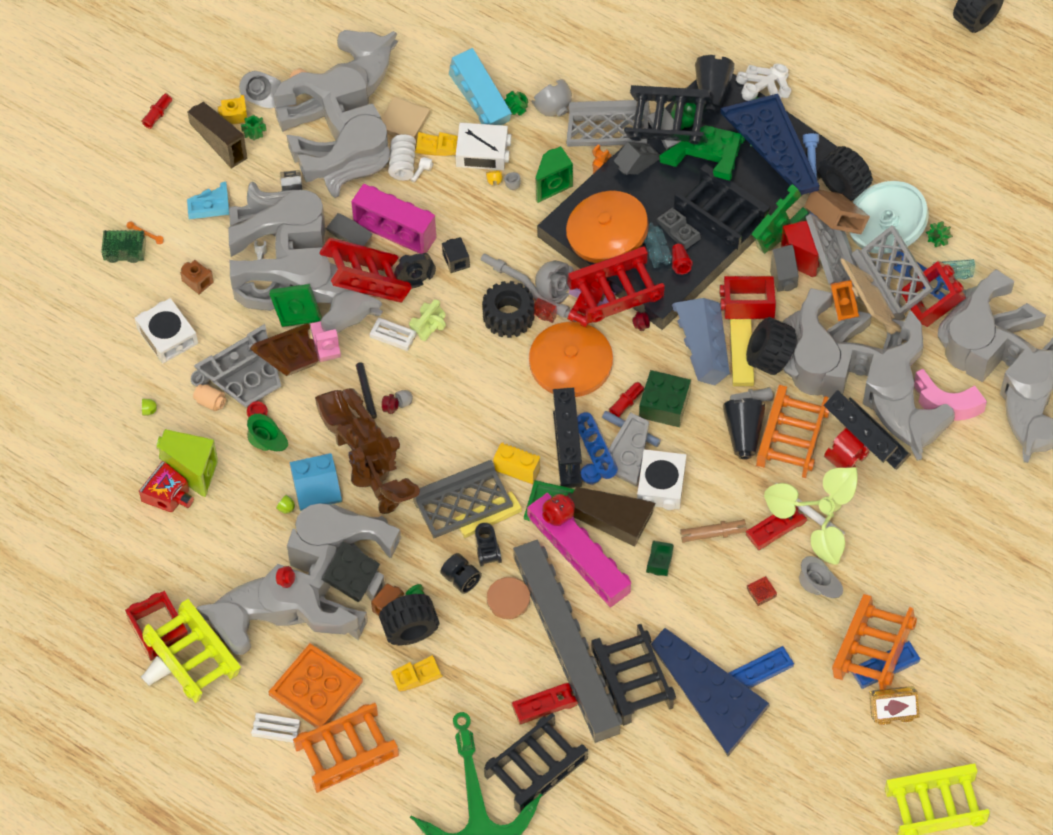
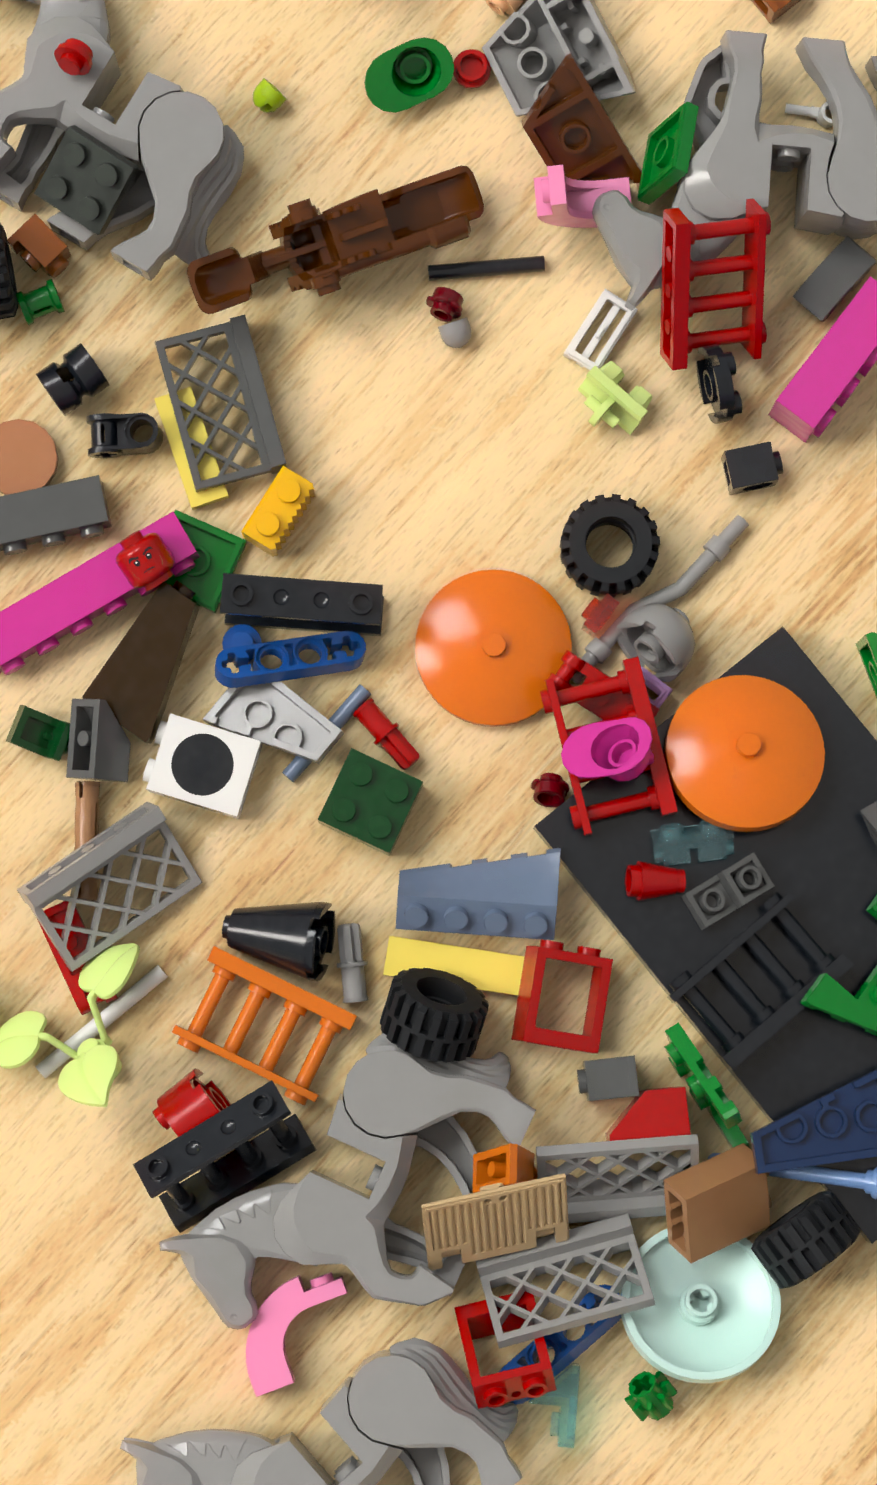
camera: 95 degrees right, 25 degrees up
(315, 481) = (302, 152): dark azure slope -> none
(619, 275) = (609, 749): none -> dark pink piece
(660, 527) = (96, 743): none -> dark grey slope
(729, 517) = (101, 853): none -> light grey fence

